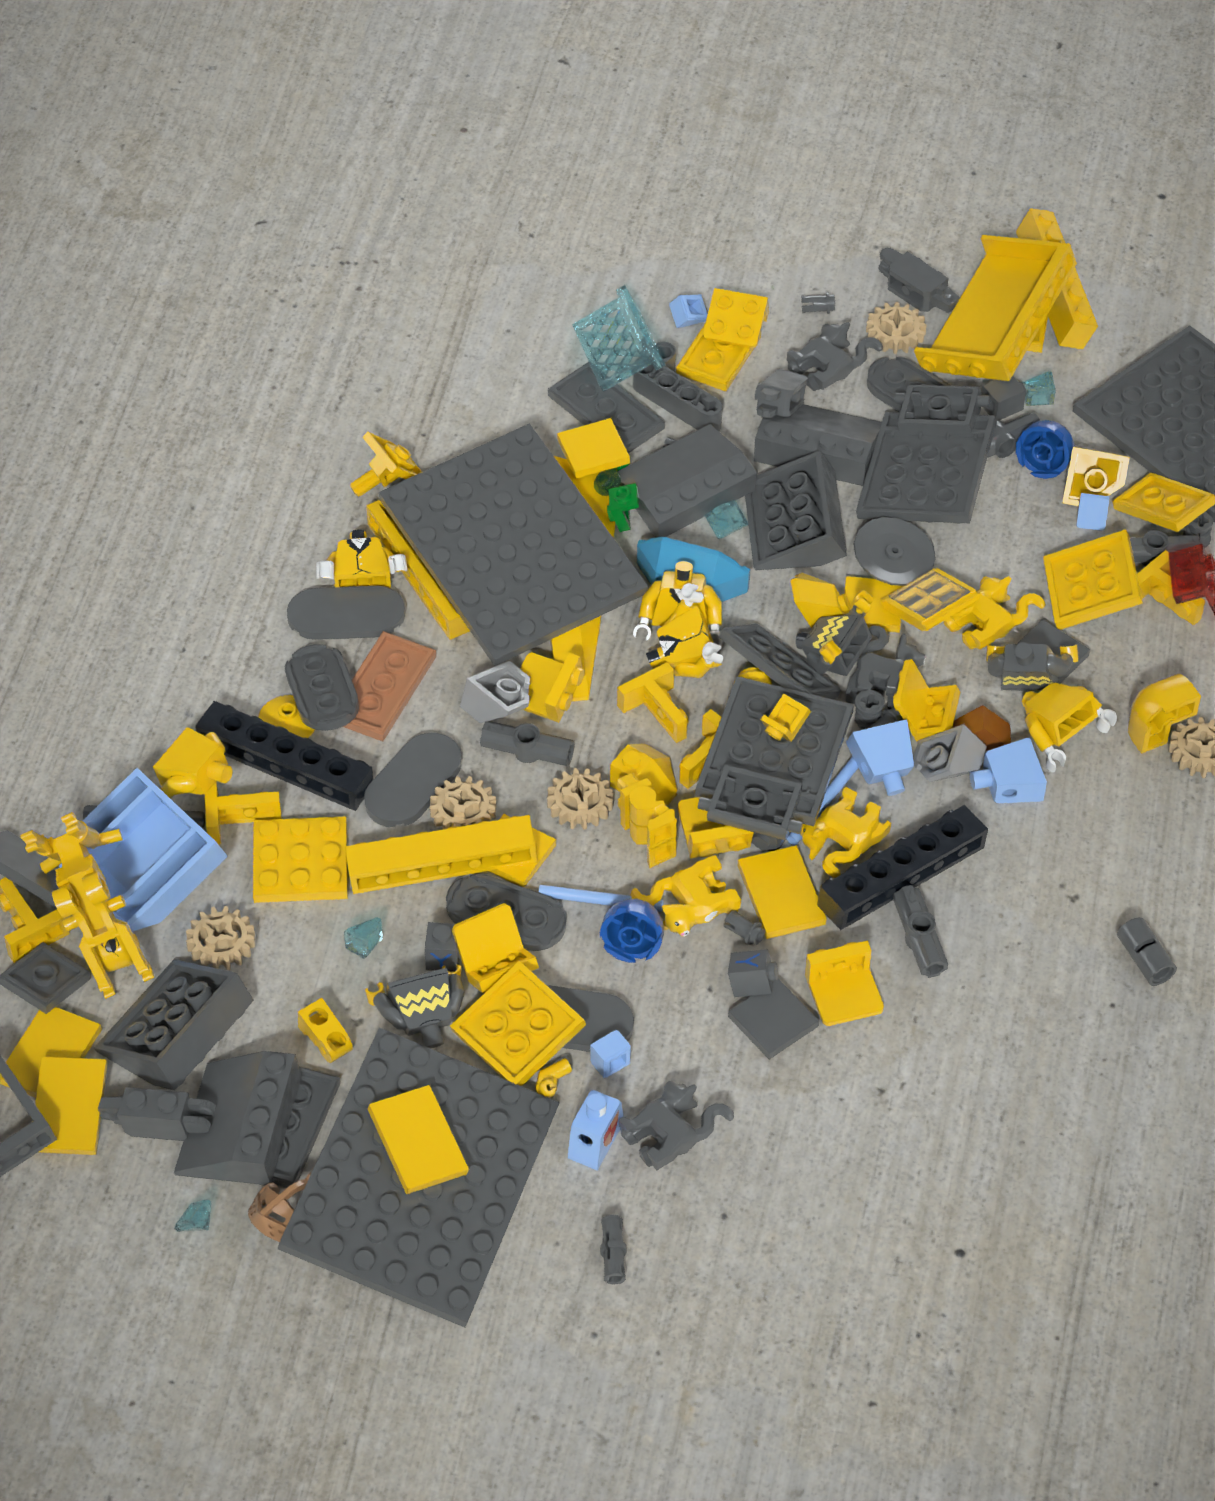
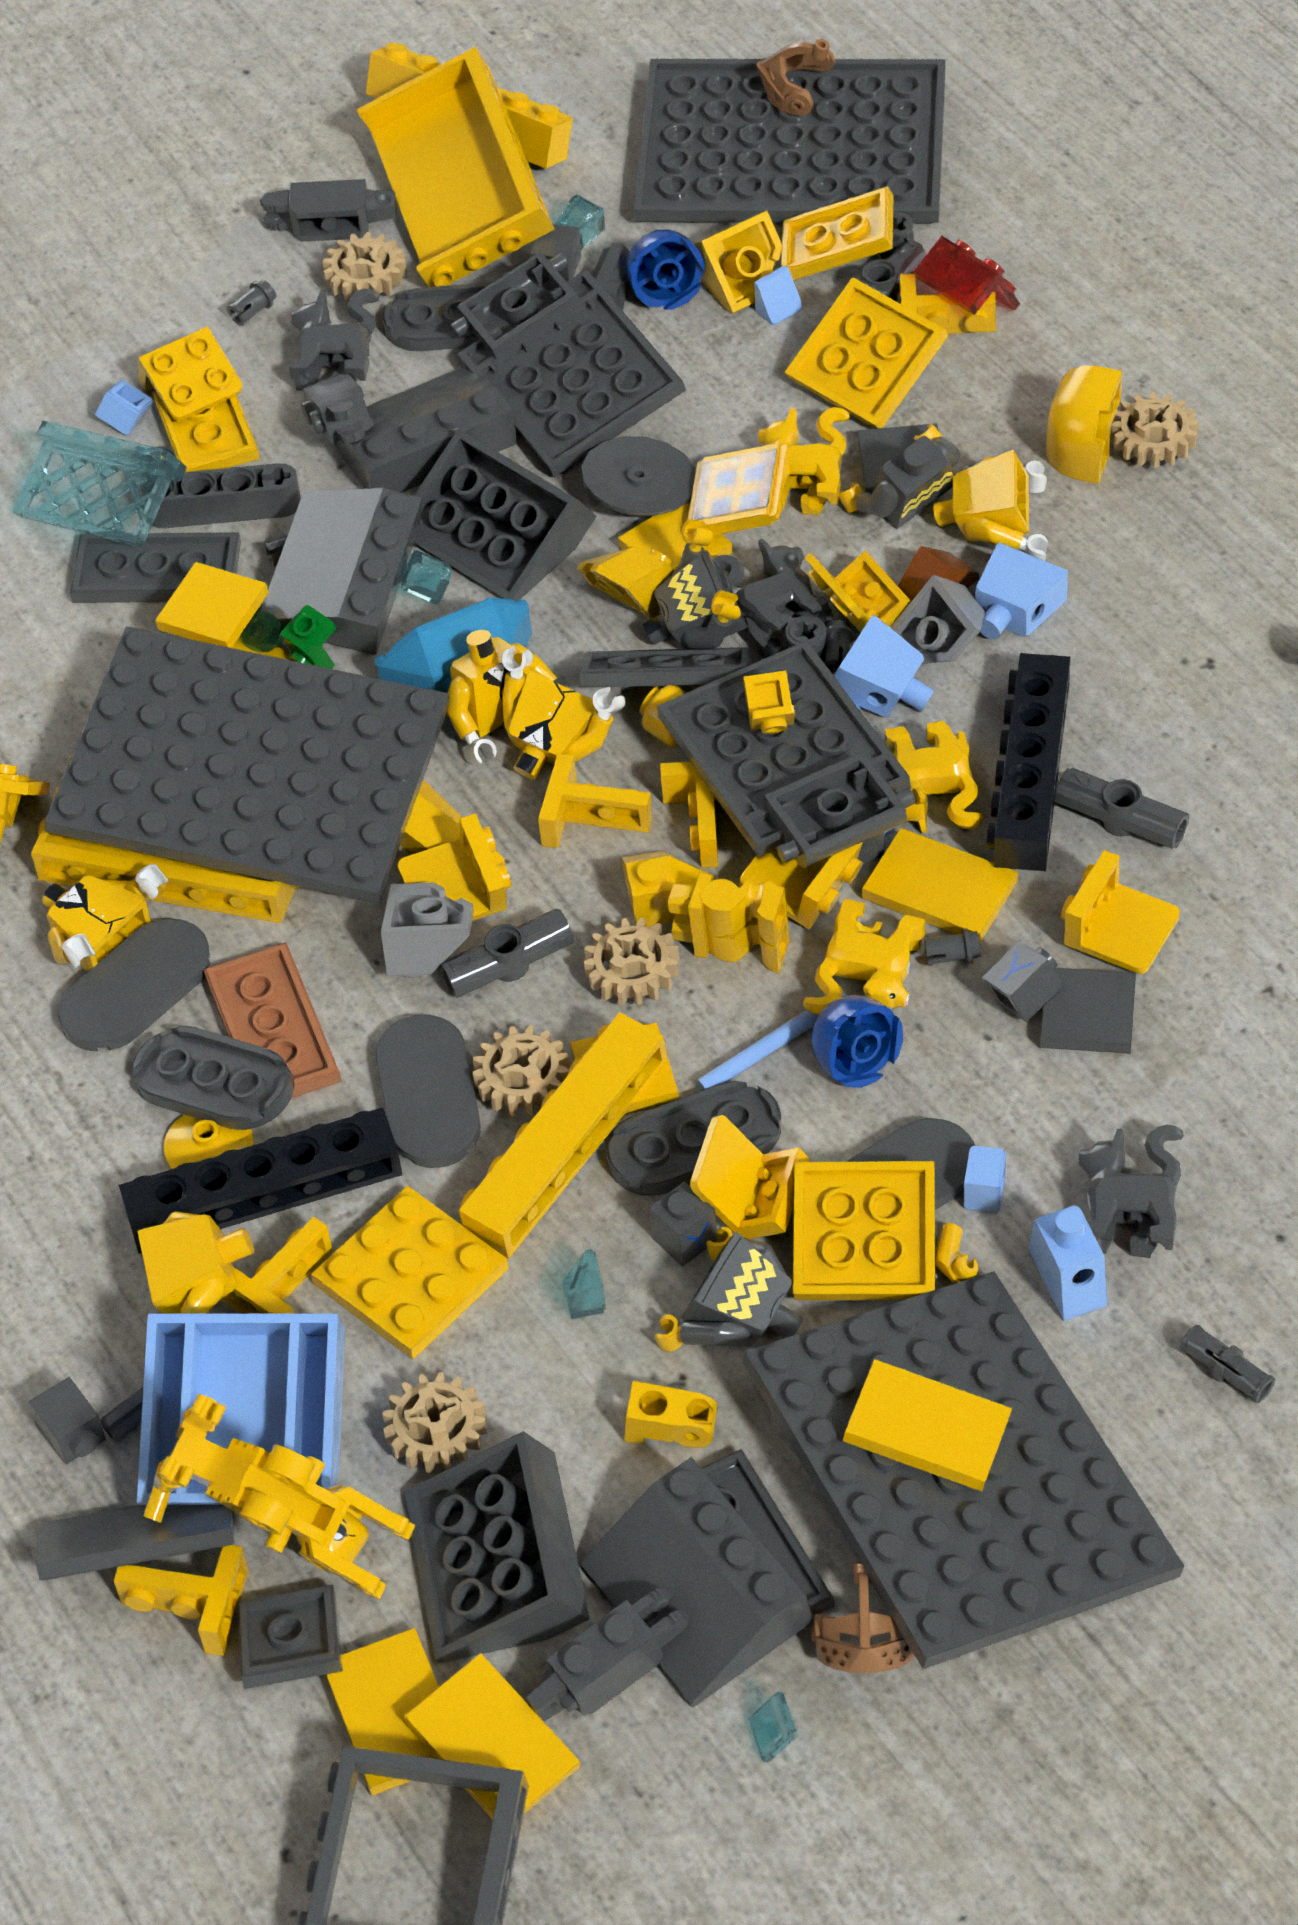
camera: 40 degrees left, 0 degrees up
(70, 792) = (67, 1420): none -> dark grey brick

